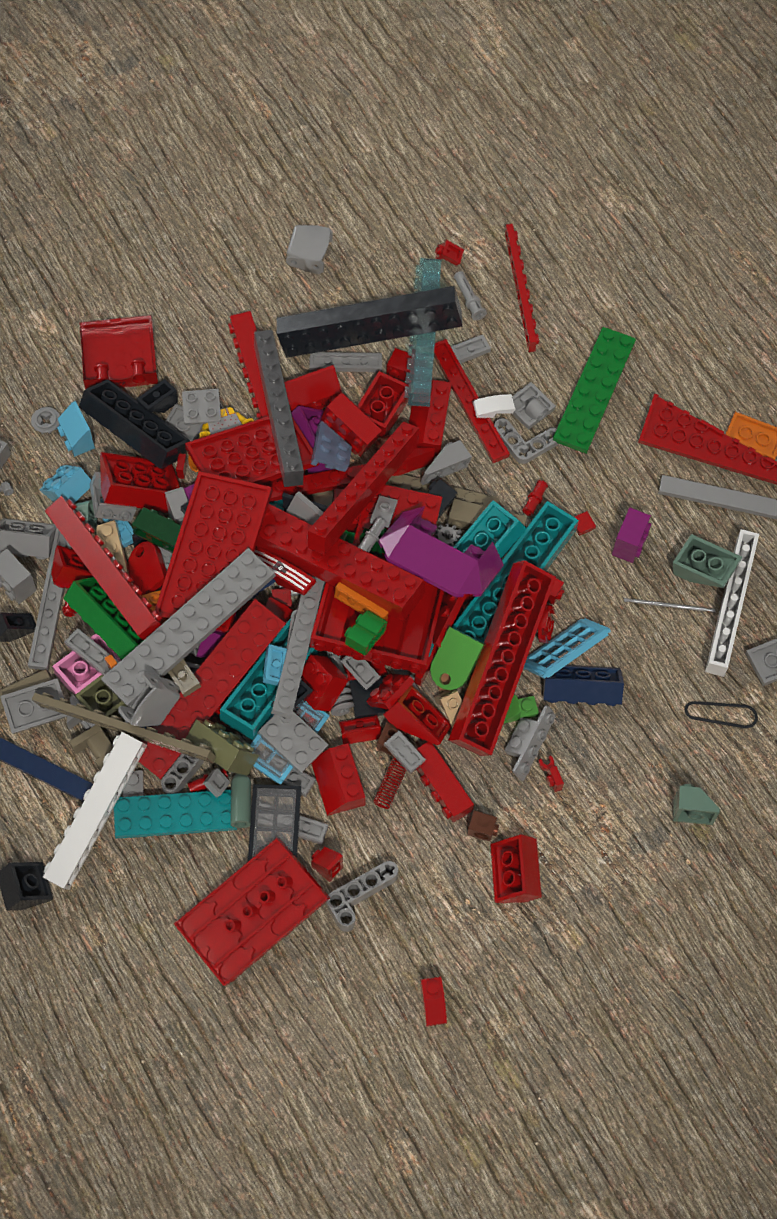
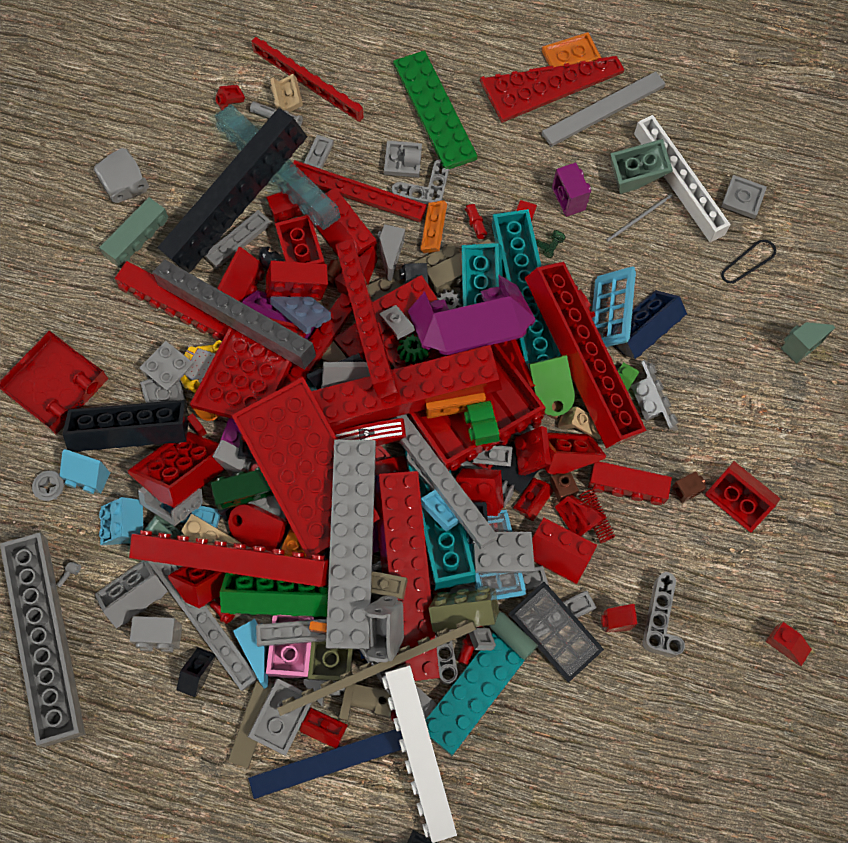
camera: 45 degrees left, 5 degrees up
(55, 741) = (323, 728): none -> red slope
(58, 648) = (256, 655): none -> medium azure slope
(159, 398) = (125, 388): black slope -> none
(239, 921) = (601, 725): red piece -> none
(278, 296) = (134, 232): none -> sand green brick
(352, 392) = (266, 257): none -> black hair
(372, 535) = (413, 345): light grey axle -> none
(377, 768) = (578, 515): none -> red wing
(404, 752) = (589, 485): light grey plate -> none
(492, 285) = (286, 93): none -> tan bracket
(493, 405) = (381, 178): white slope -> none
(498, 474) = (433, 226): none -> orange plate
(553, 777) = (695, 405): red plate -> none
(570, 566) = (557, 237): none -> clear green piece

